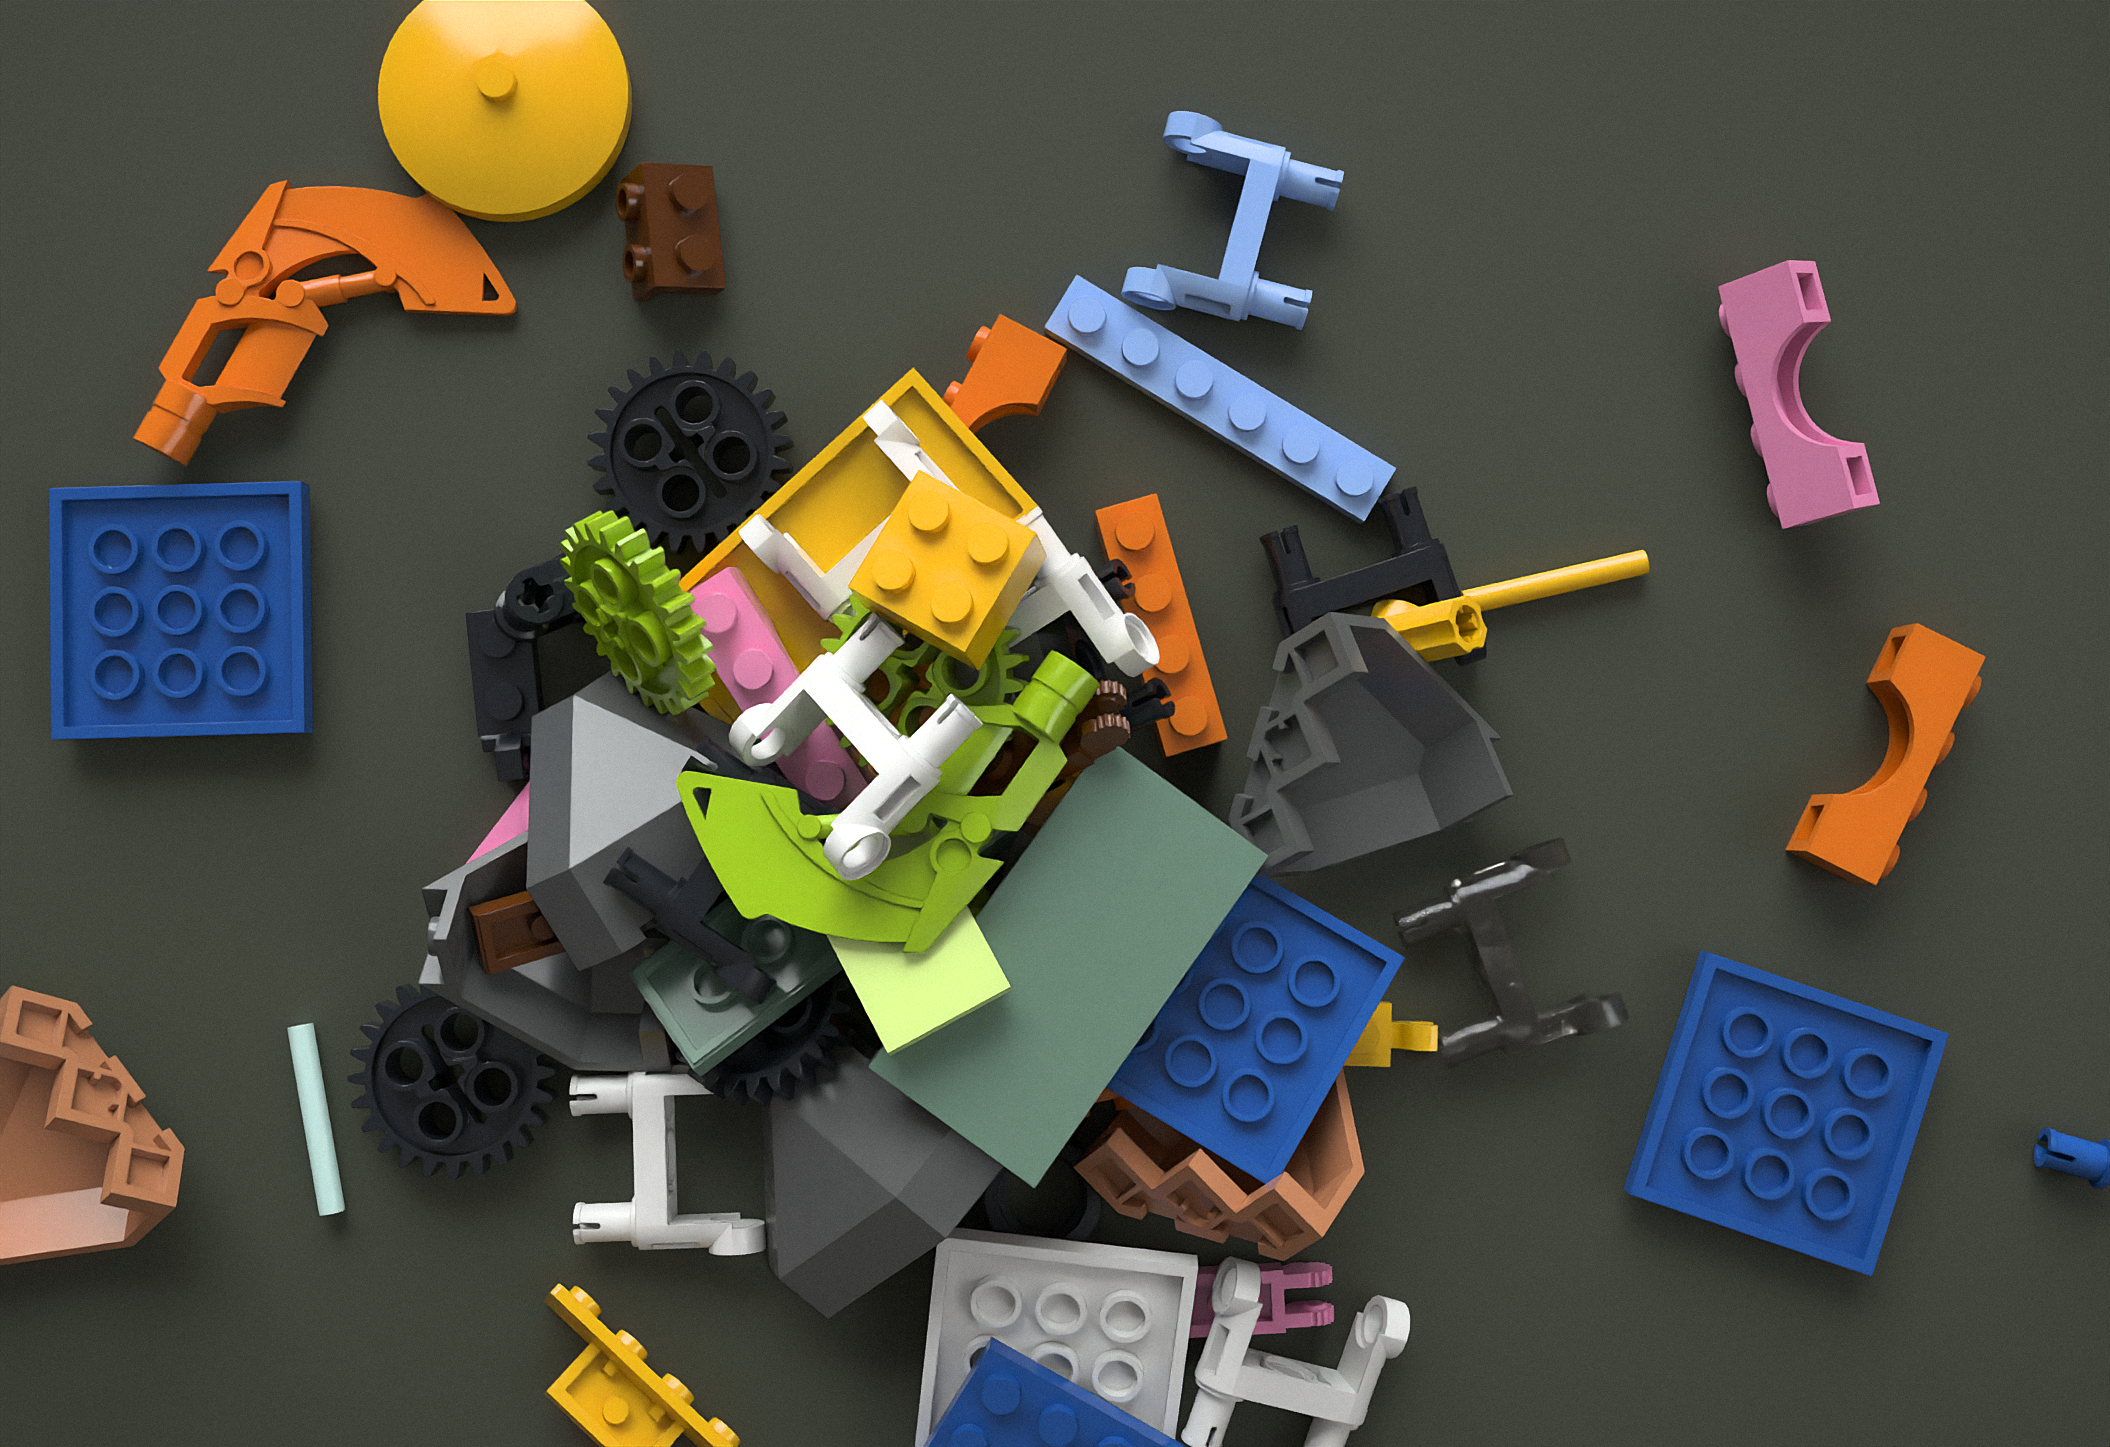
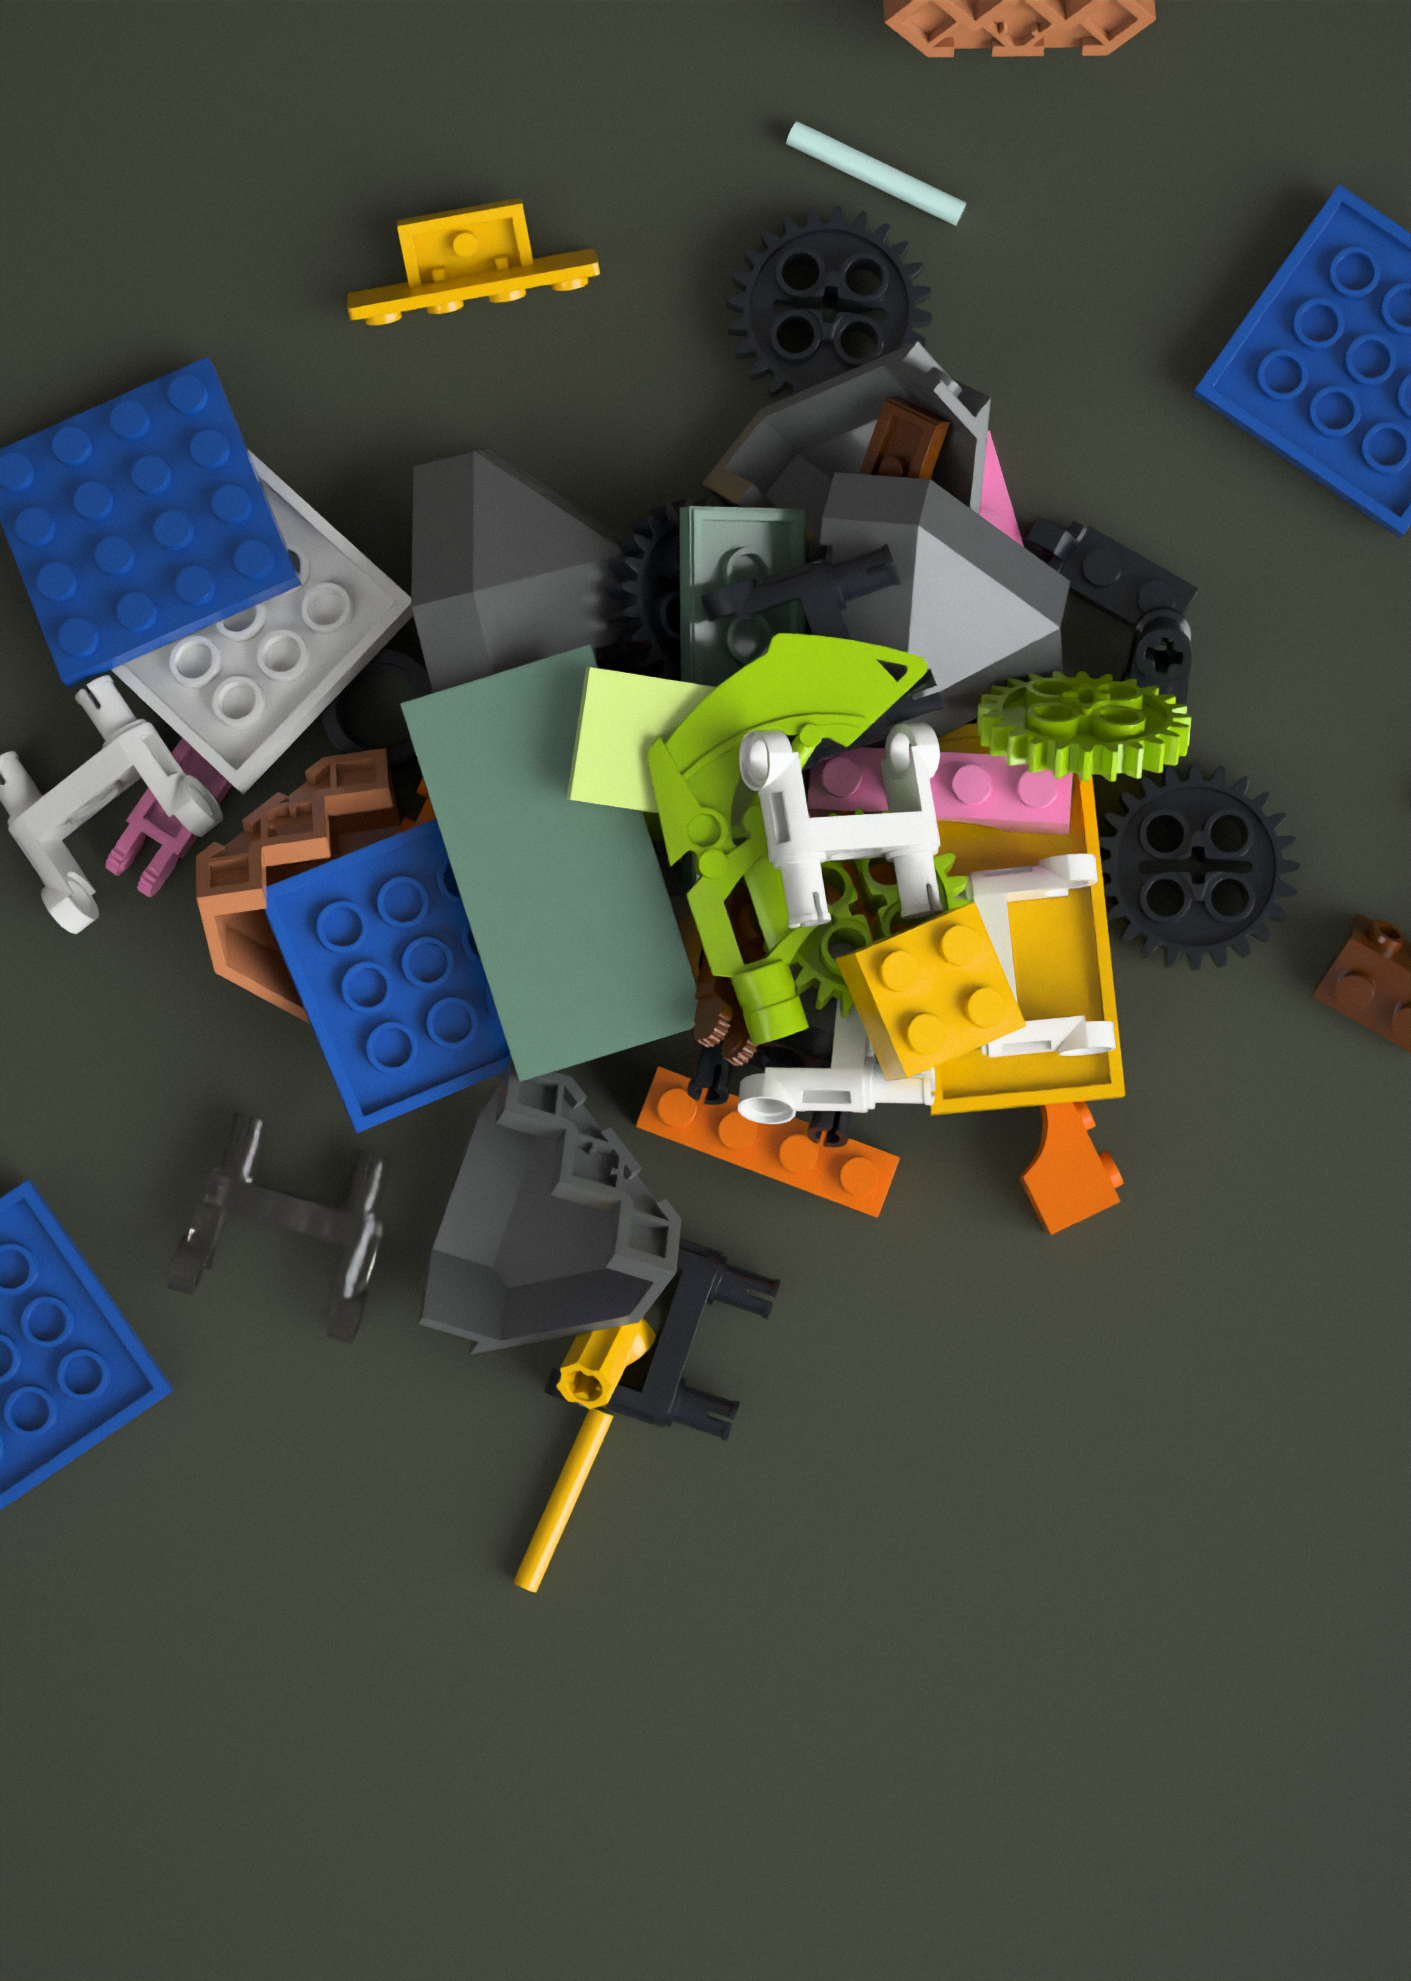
camera: 130 degrees right, 0 degrees up
(652, 1216) = (598, 384): white connector -> none
(1219, 399) = (919, 1335): light blue plate -> none
(1267, 176) = (1074, 1512): light blue connector -> none
(1382, 1034) = (305, 1075): yellow plate -> none
(1771, 326) = (639, 1833): bright pink arch -> none
(1922, 688) = (252, 1734): orange arch -> none

